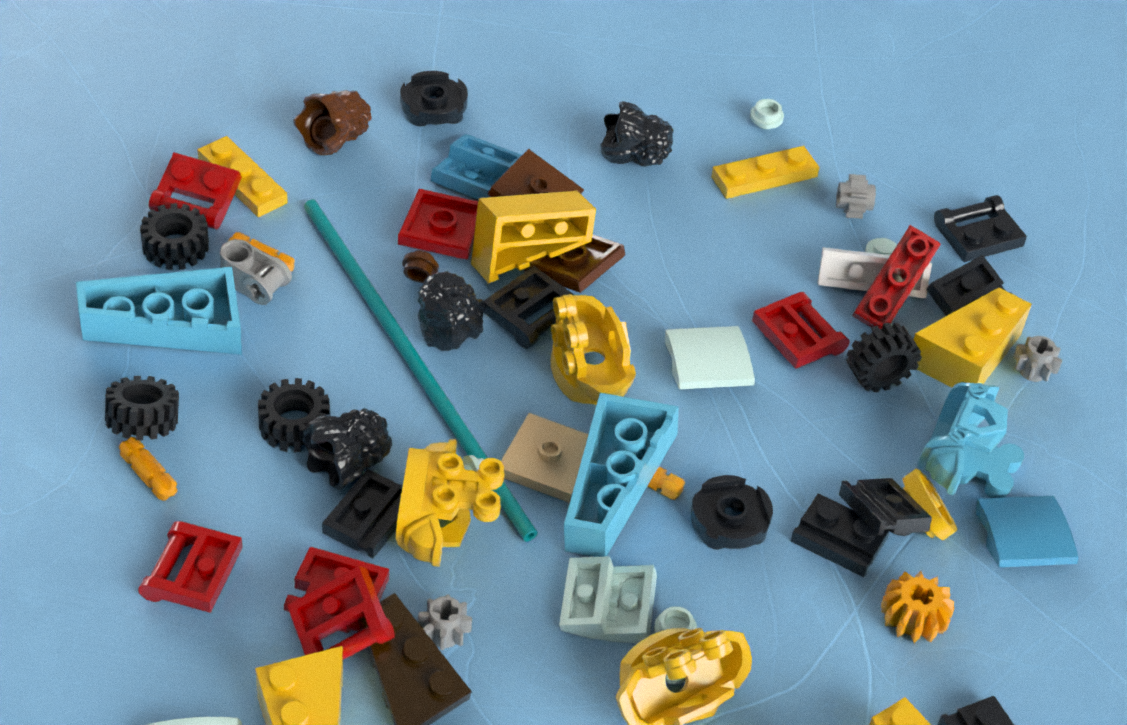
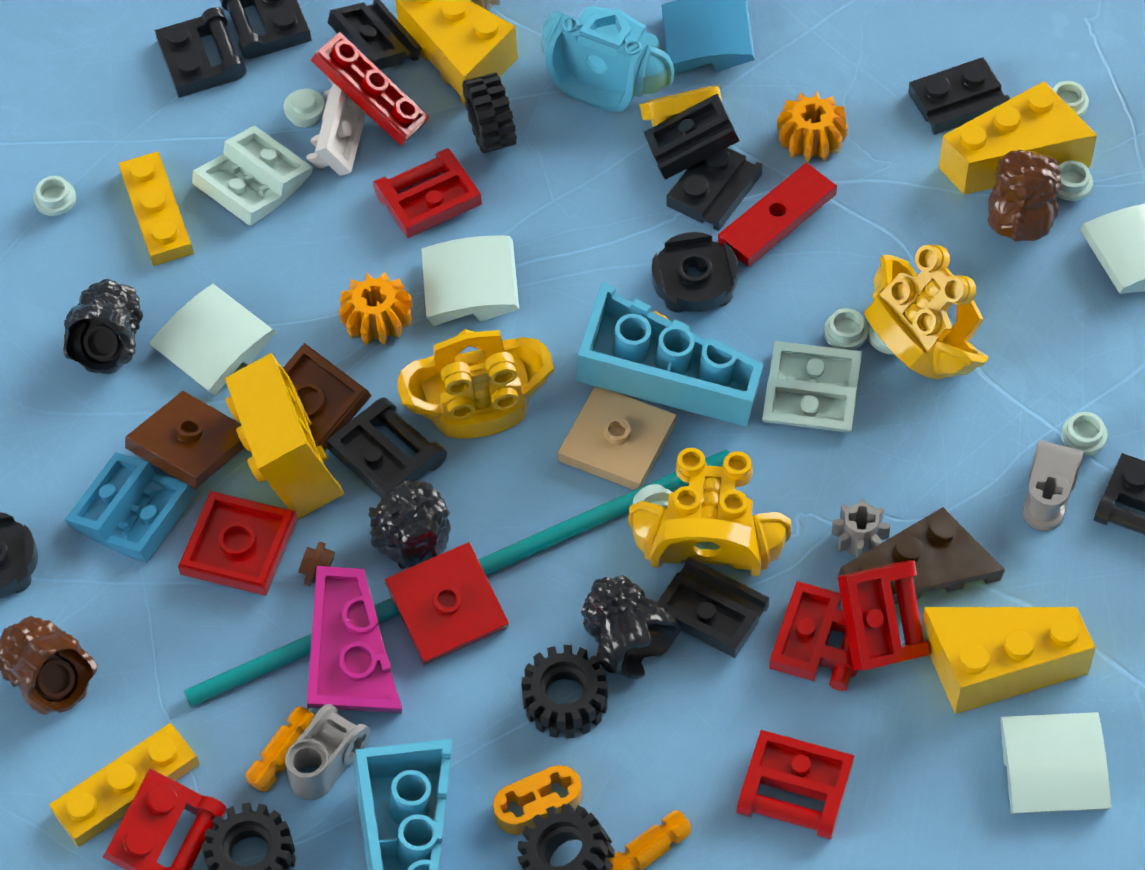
camera: 80 degrees left, 10 degrees up
(207, 398) = (535, 796): none -> light orange beam
(341, 279) = (347, 647): none -> dark pink wing
(380, 341) = (446, 603): none -> red plate
(637, 204) = (212, 338): none -> light aqua slope
(669, 295) = (375, 308): none -> light orange gear
(805, 225) = (252, 175): none -> light aqua slope
(806, 576) = (777, 214): none -> red tile
(855, 196) = (220, 117): light grey gear -> none
(930, 189) = (188, 59): none -> black plate

